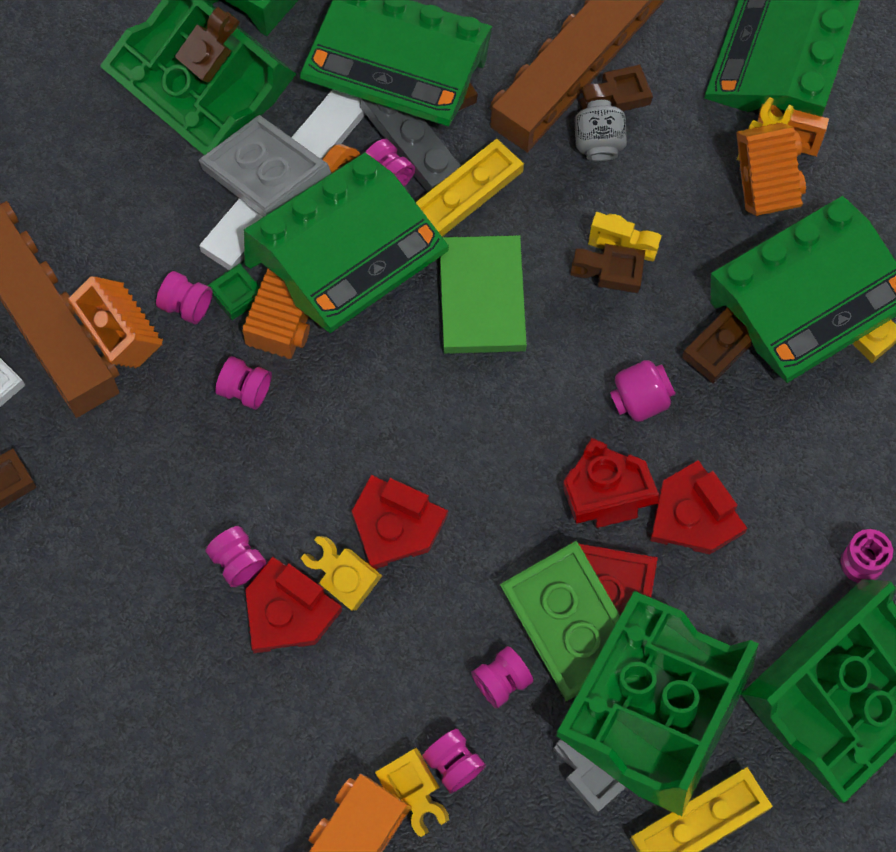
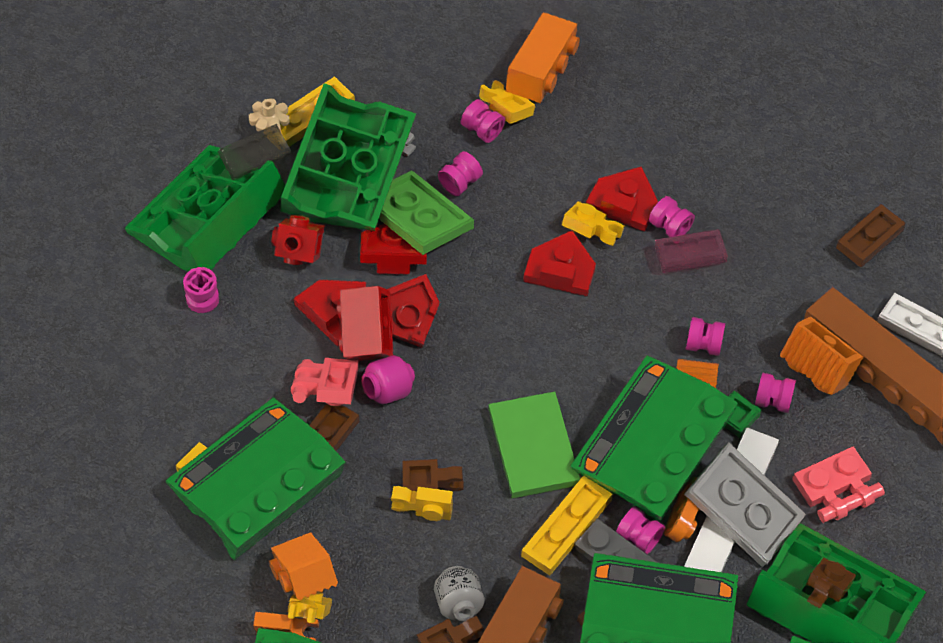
camera: 170 degrees right, 10 degrees down
(151, 199) = (834, 476): none -> coral plate
(223, 508) = (691, 250): none -> clear pink plate
(663, 451) = (365, 323): none -> brick
(707, 393) = (330, 381): none -> coral plate
(736, 601) = (297, 240): none -> red brick
(756, 820) = (268, 114): none -> tan plant
(786, 747) = (254, 151): none -> clear smoke plate

